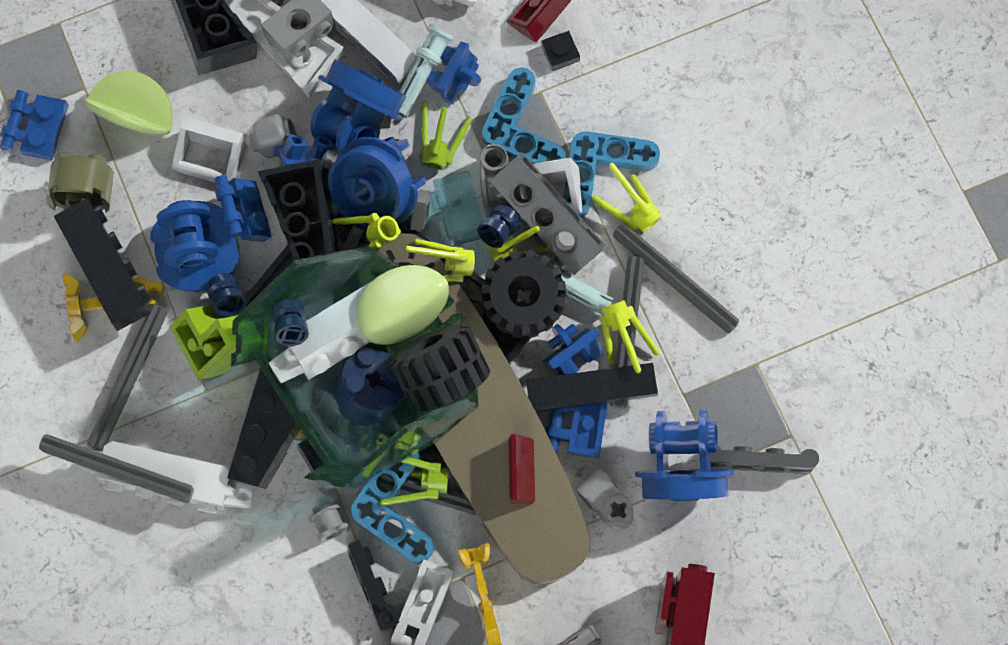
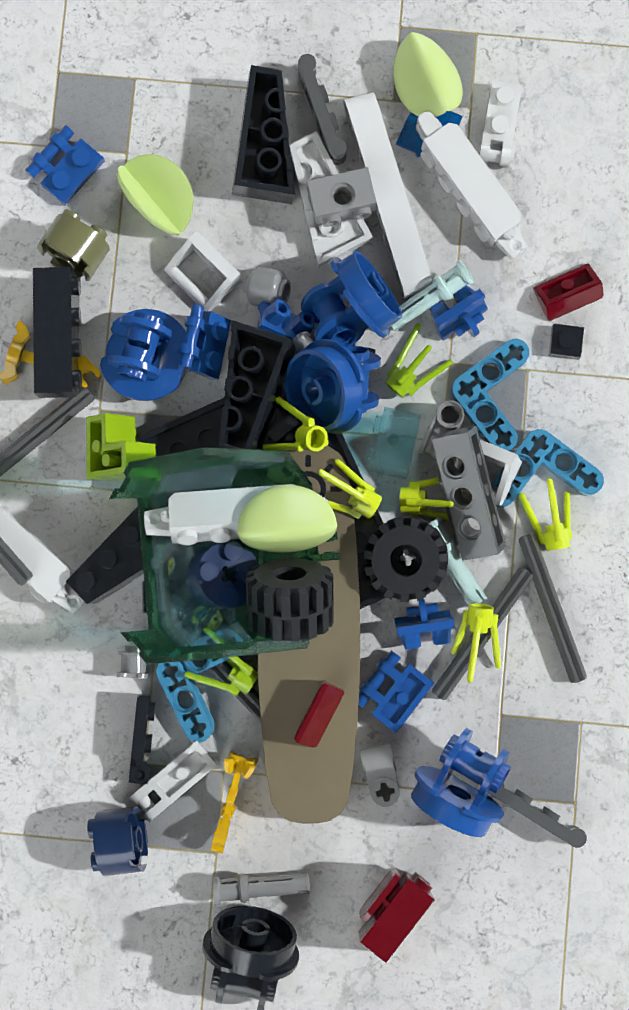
camera: 30 degrees right, 10 degrees up
(225, 295) = (148, 415): dark blue wheel -> none
(289, 322) = (179, 488): dark blue wheel -> none
(421, 211) = (361, 428): light grey tile -> none
(497, 228) = (419, 482): dark blue wheel -> none
(591, 387) = (421, 670): black tile -> none

